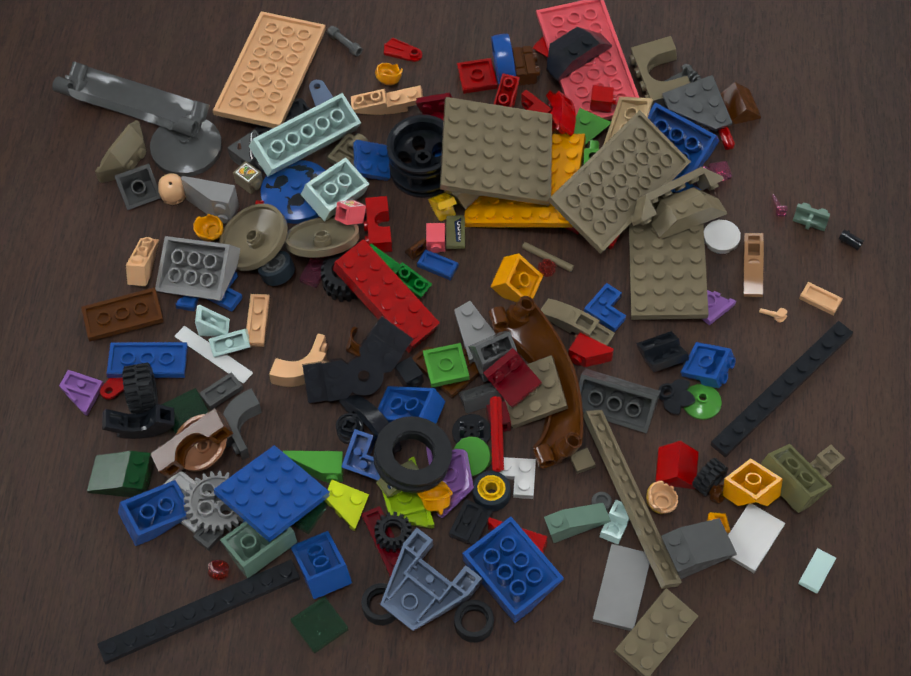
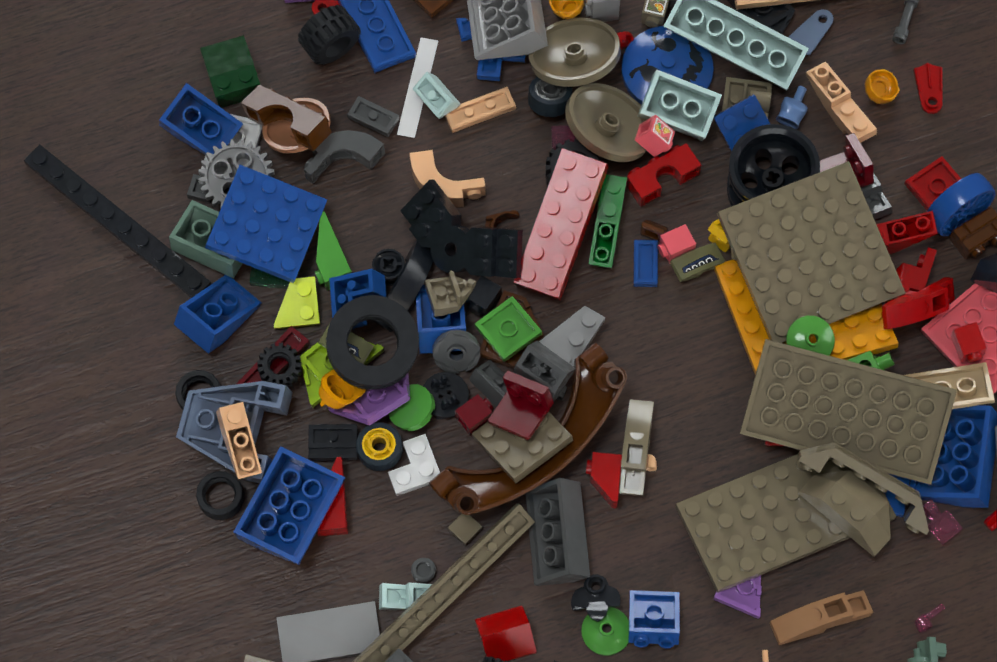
camera: 65 degrees right, 10 degrees up
(138, 426) = (291, 53): black arch -> none
(186, 407) = (335, 93): clear green tile -> none
(210, 323) = (449, 64): light aqua slope -> none
(218, 569) = (168, 216): clear red tile -> none
(319, 624) = (152, 344): clear green tile -> none
(374, 131) = (793, 109): none -> medium blue piece
(396, 394) = (448, 293): none -> dark tan slope
(437, 403) = (456, 340): none -> dark grey tile
(443, 578) = (239, 440): none -> light nougat slope
(497, 434) = (444, 420): red axle -> none
(516, 278) = (664, 358): light orange slope -> none
(542, 254) = (717, 378): dark tan bar -> none
(547, 271) = (701, 389): clear red plate -> none
(555, 175) = (802, 328): none -> bright green dish
(576, 521) = (382, 551): sand green slope -> none
(589, 124) = (921, 343): bright green wing -> none
(602, 307) = (672, 467): blue plate -> none
(661, 497) = (454, 632): light nougat hair -> none
(662, 351) = (648, 559): black slope -> none
(721, 236) = (847, 566): white tile -> none

